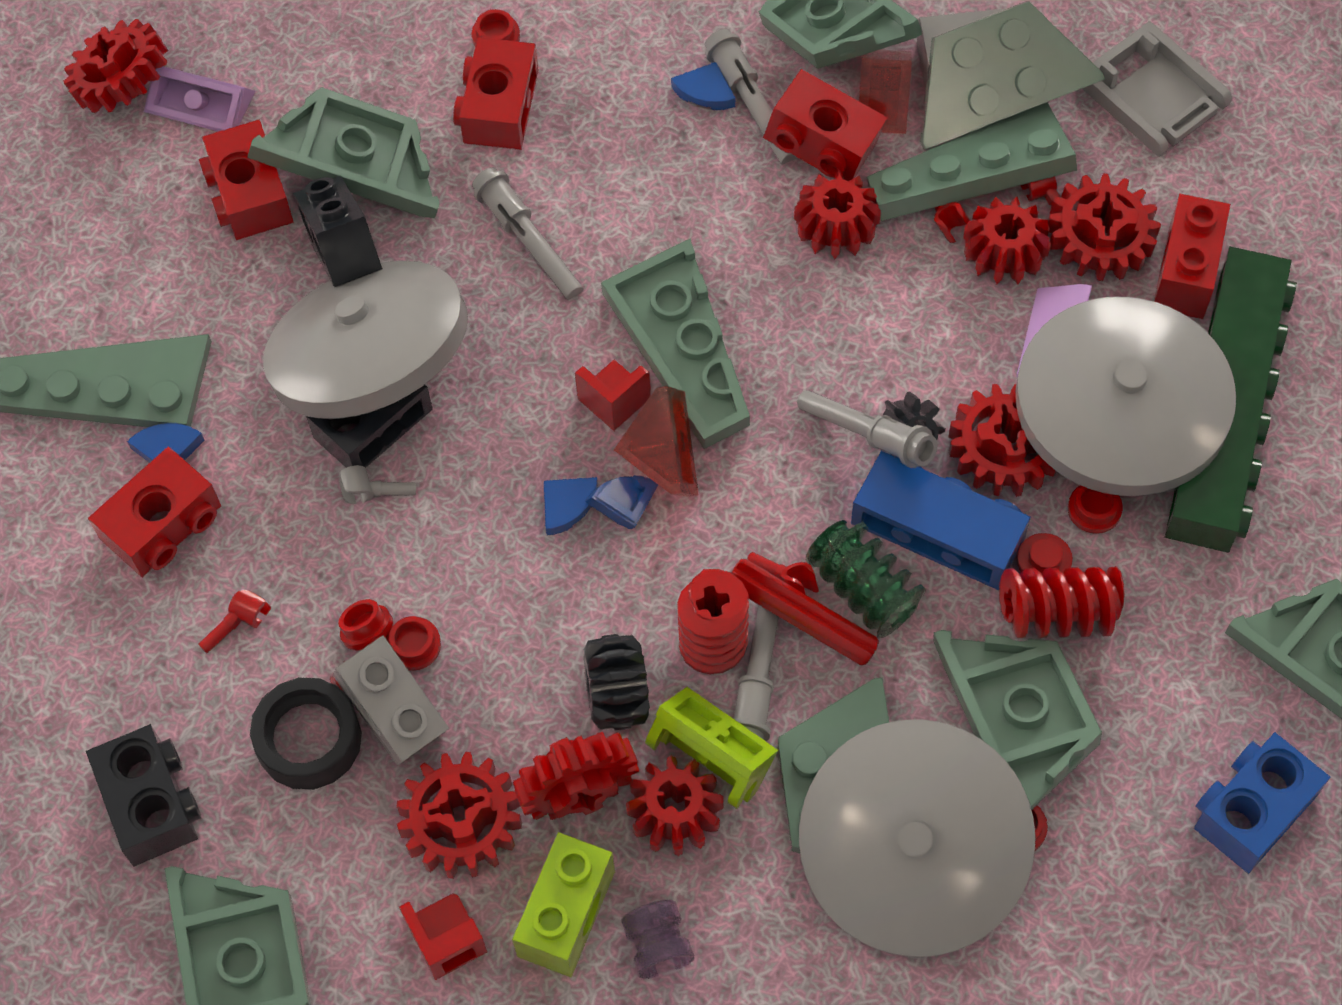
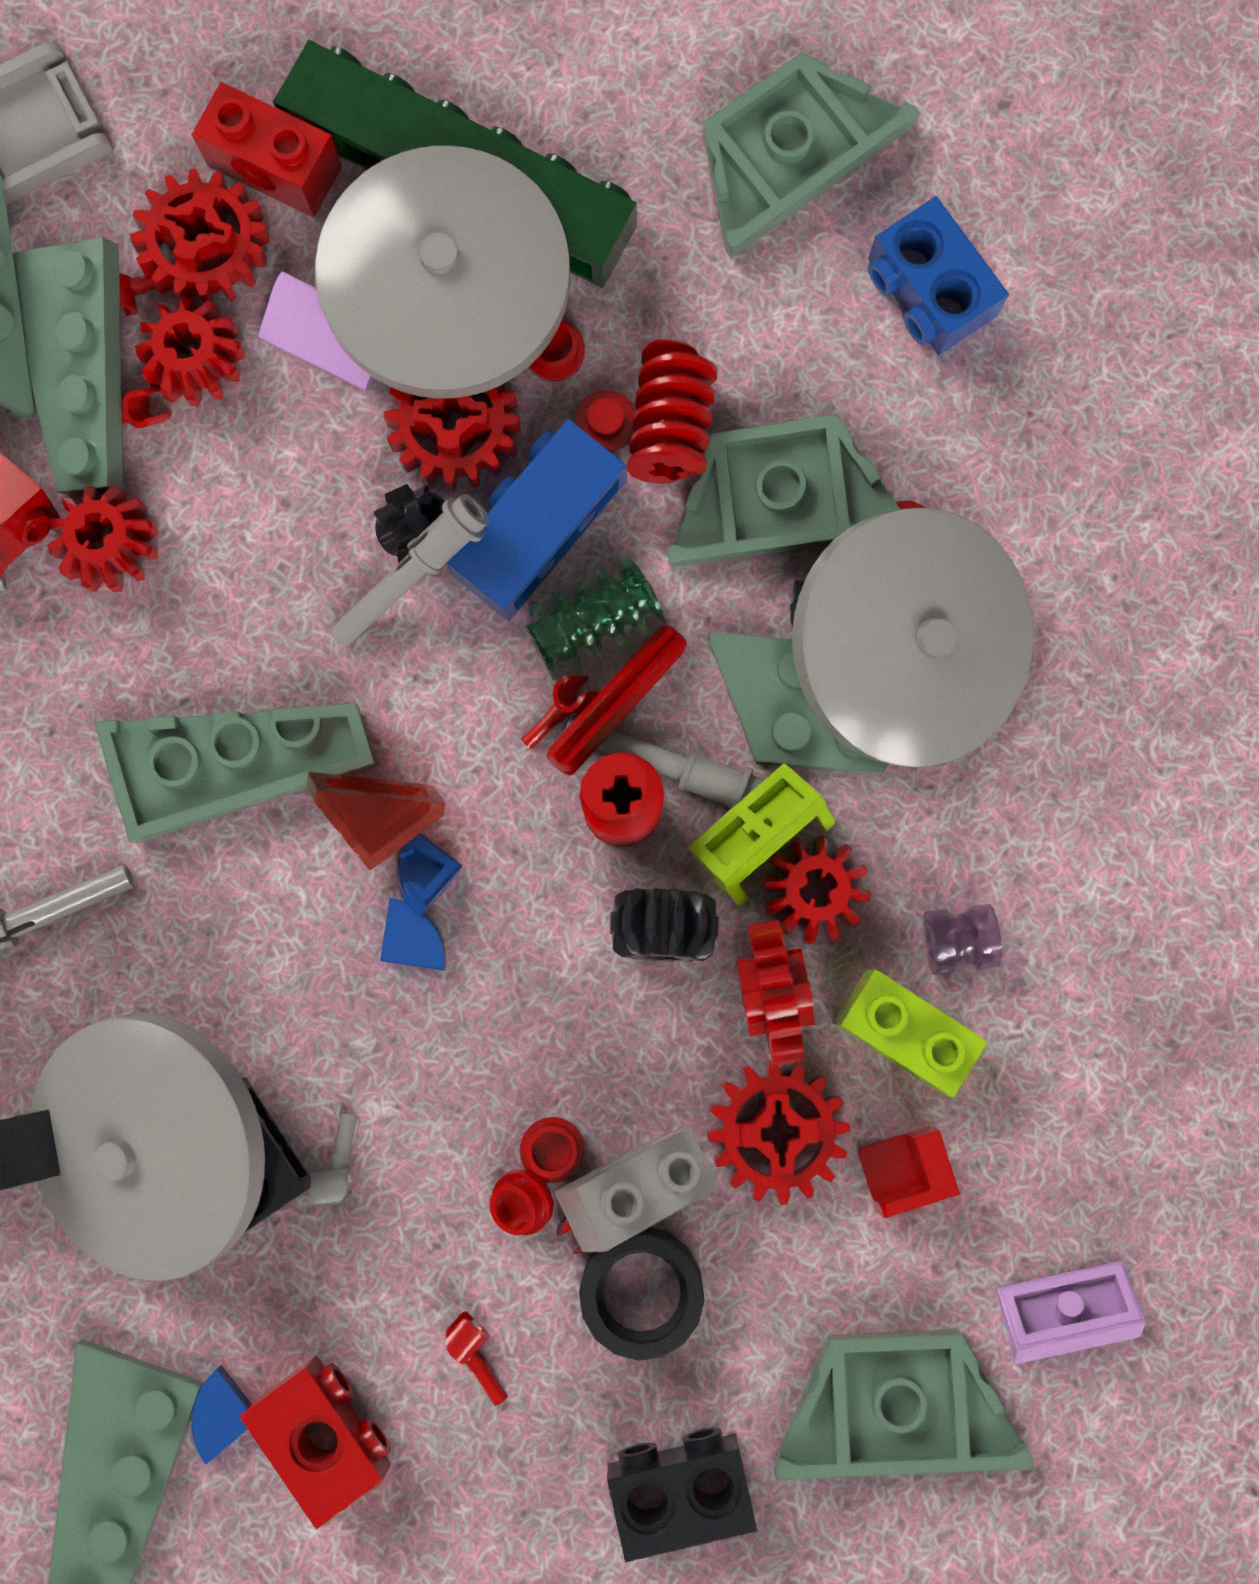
camera: 80 degrees left, 20 degrees up
(613, 392) = (280, 856): red panel -> none

